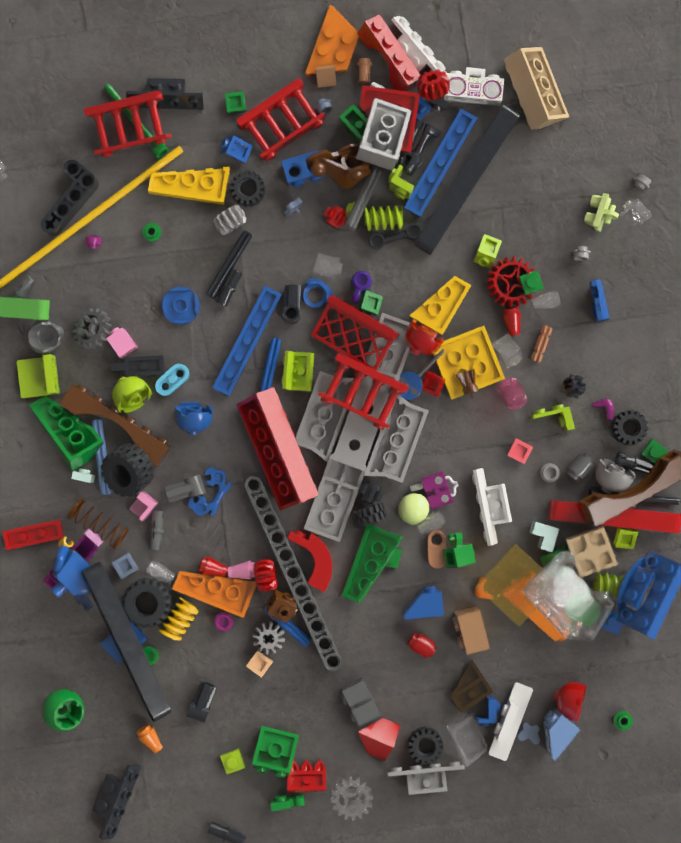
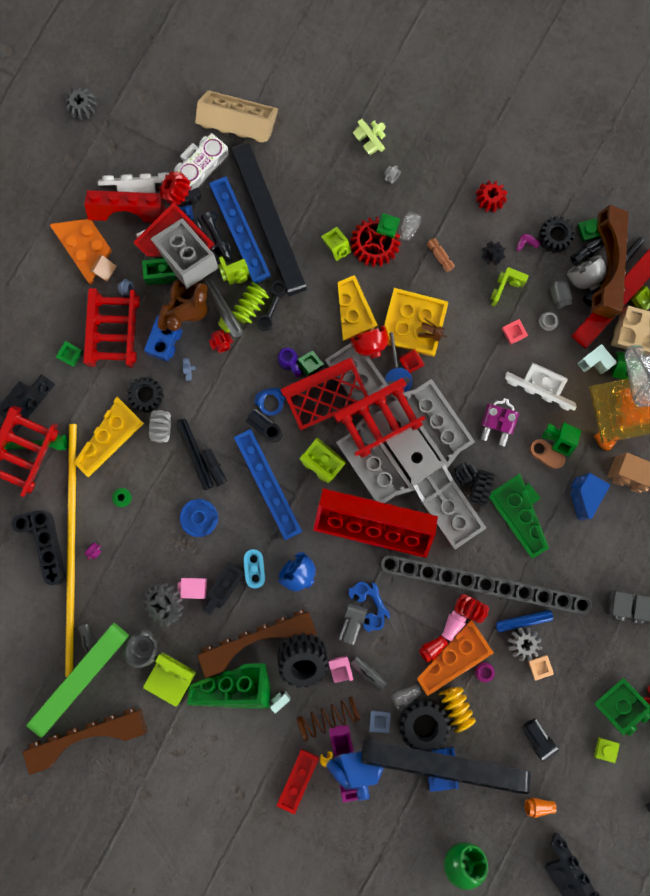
camera: 55 degrees left, 5 degrees down
(84, 600) = (386, 777): dark blue tile -> none
(100, 455) = (274, 675): medium blue axle -> none
(130, 393) = (240, 612): lime cylinder -> none
(151, 654) = (468, 752): green tile -> none
(236, 148) = (106, 380): blue bracket -> none
(270, 364) = (301, 480): blue axle -> none
(281, 606) = (507, 614): reddish brown brick -> none
(323, 562) = (499, 557): red arch -> none
(327, 266) = (255, 376): clear bracket -> none
(364, 70) = (118, 233): nougat pin -> none
(413, 508) = (501, 449): yellowish green hair -> none
(422, 645) = (618, 522): red brick -> none
(432, 522) = (523, 442): clear cone -> none
(508, 350) = (427, 283): clear bracket -> none
(512, 320) = (406, 263): red cone -> none
(512, 393) = (465, 303): clear pink gear -> none
(599, 304) = (445, 190): blue slope -> none
(623, 342) = (494, 190): none -> red gear
(638, 210) = (390, 106): clear bracket -> none
(641, 181) = (369, 89): light grey plate -> none

